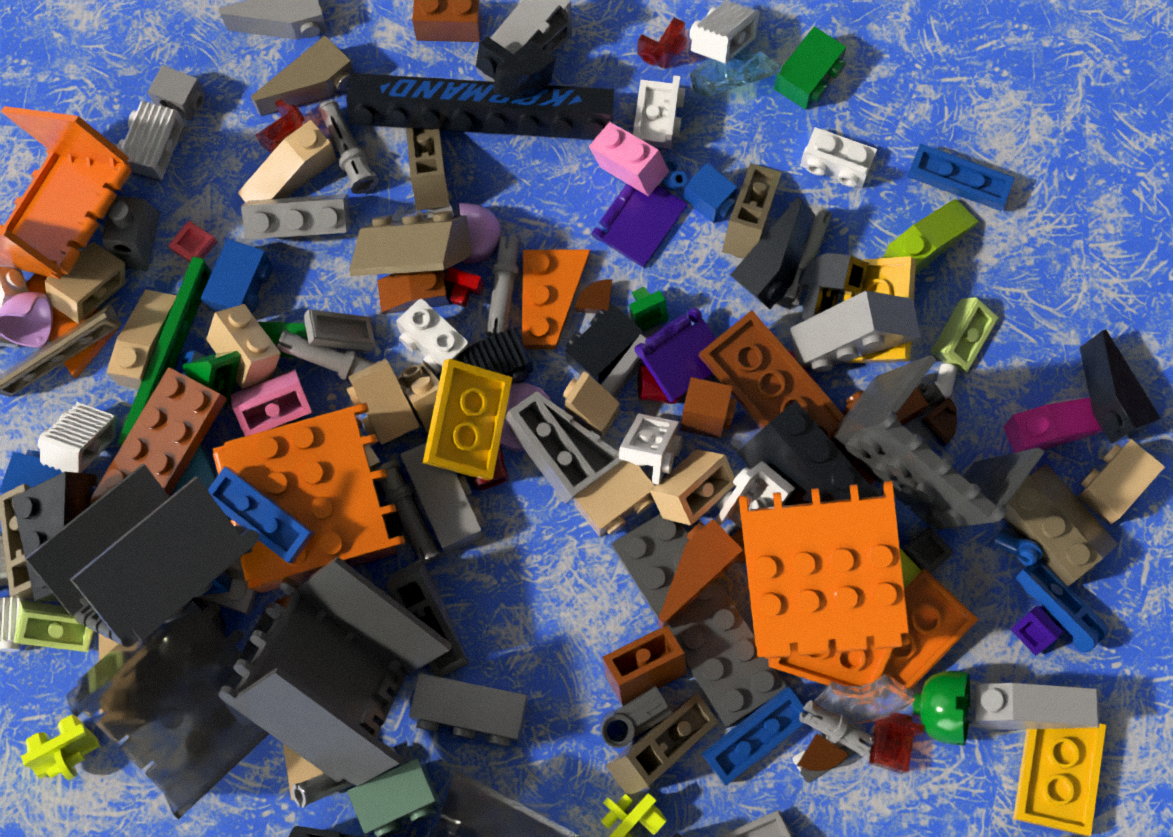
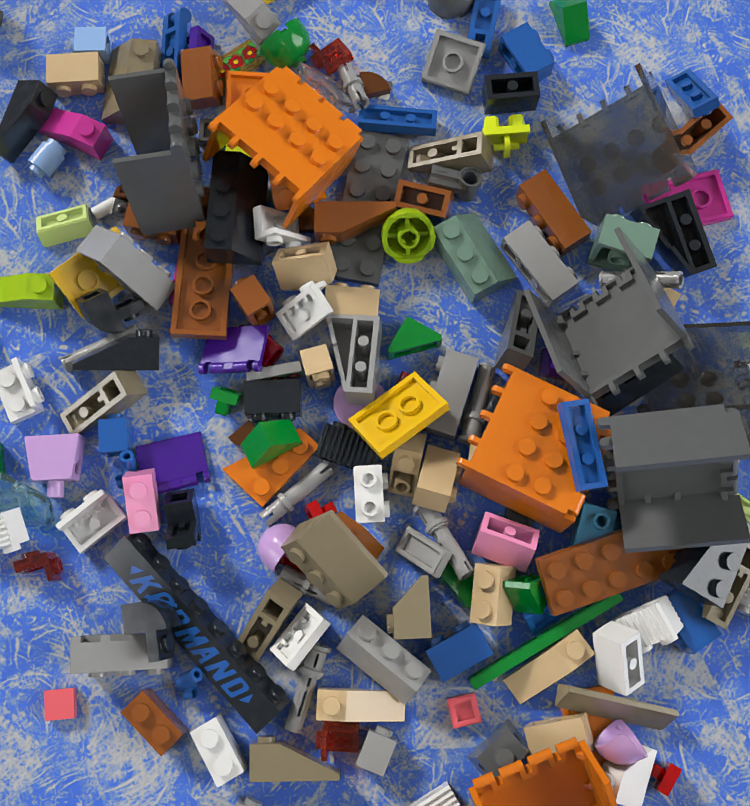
camera: 140 degrees left, 5 degrees up
(82, 387) = (618, 658): none -> white brick
(240, 147) = (376, 750): none -> light grey brick
(299, 259) = (411, 613): none -> dark tan slope
(374, 40) = (219, 750): none -> white brick
(385, 172) = (300, 637): none -> white bracket
(447, 66) = (188, 681): none -> blue arm
(523, 781) = (552, 213): none -> dark orange brick
(526, 518) = (412, 339): none -> green slope
(543, 657) = (472, 256): none -> sand green slope
(566, 305) = (269, 441): none -> green slope
(577, 177) = (182, 519): none -> black brick
(625, 610) = (408, 235): none -> lime cylinder
(741, 129) = (55, 460): none -> lavender torso
(984, 647) = (242, 58): none -> tile
(993, 590) = (202, 77): none -> dark orange brick
(1049, 374) = (46, 158): none -> light blue brick
(1139, 526) = (92, 40): none -> light blue brick

